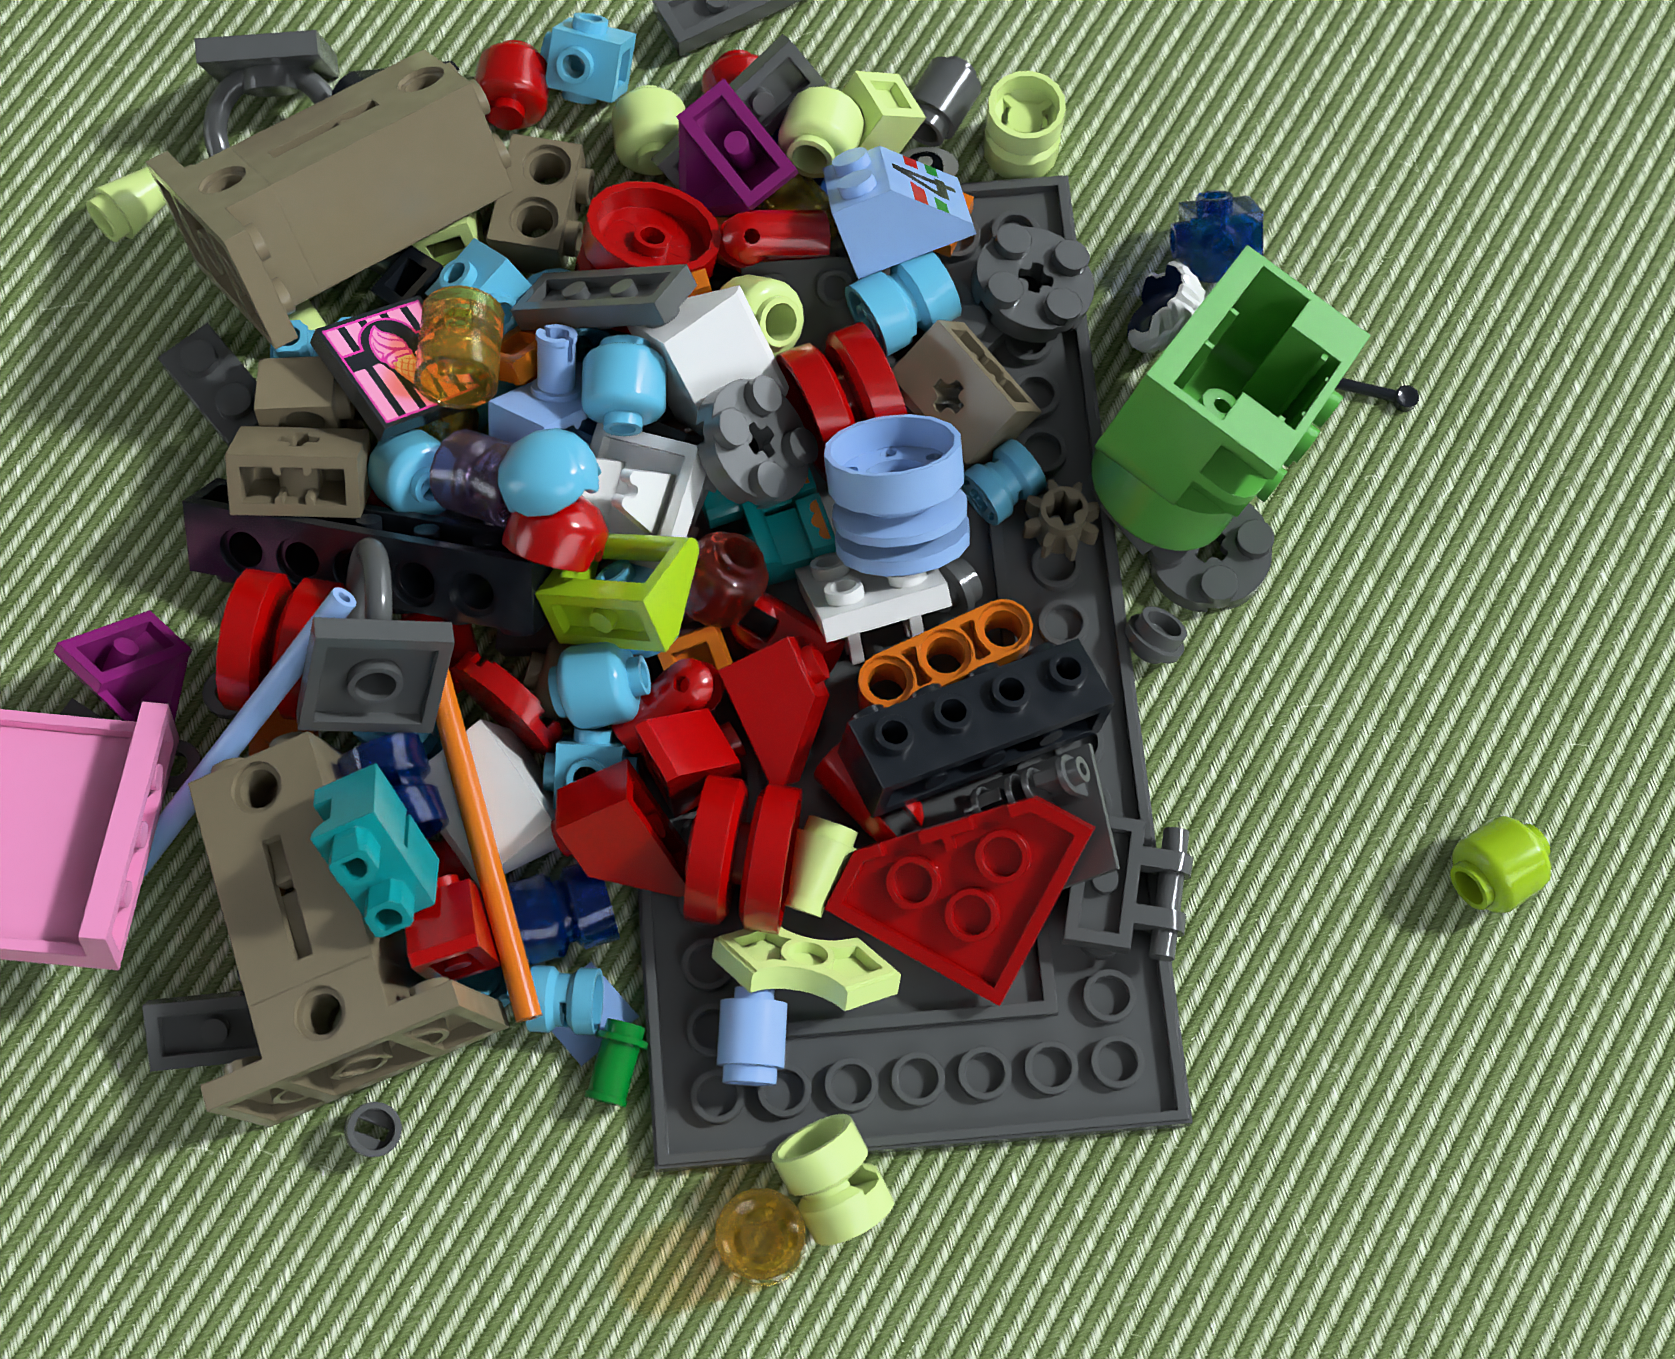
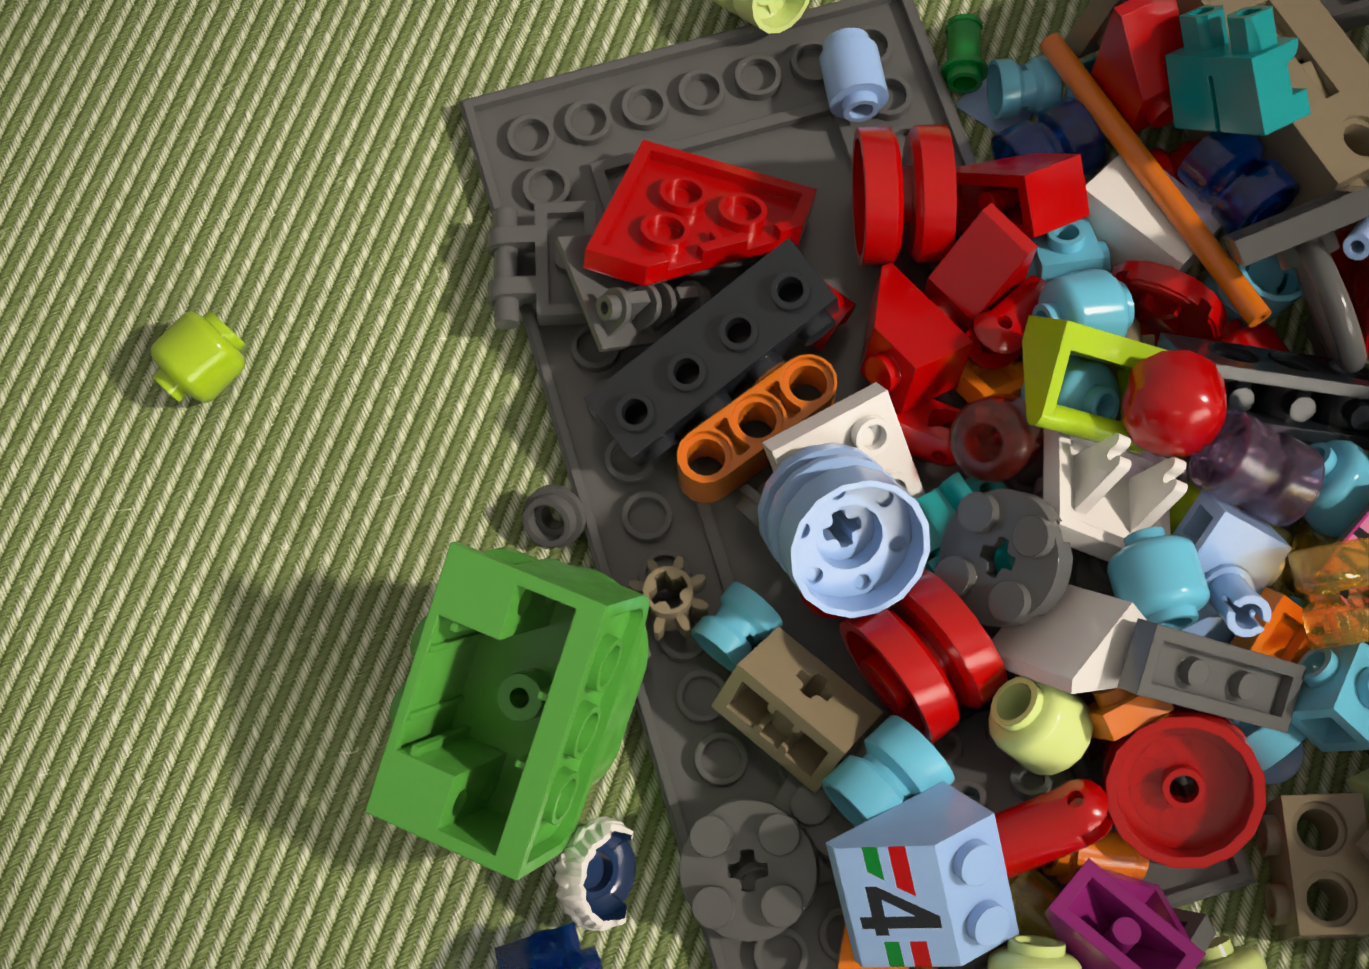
camera: 170 degrees right, 0 degrees up
(547, 472) = (1203, 430): medium azure hair -> none
(818, 863) = (831, 230): yellowish green cone -> none
(836, 970) = (796, 133): yellowish green tile -> none
(1403, 398) = (323, 847): black hinge -> none

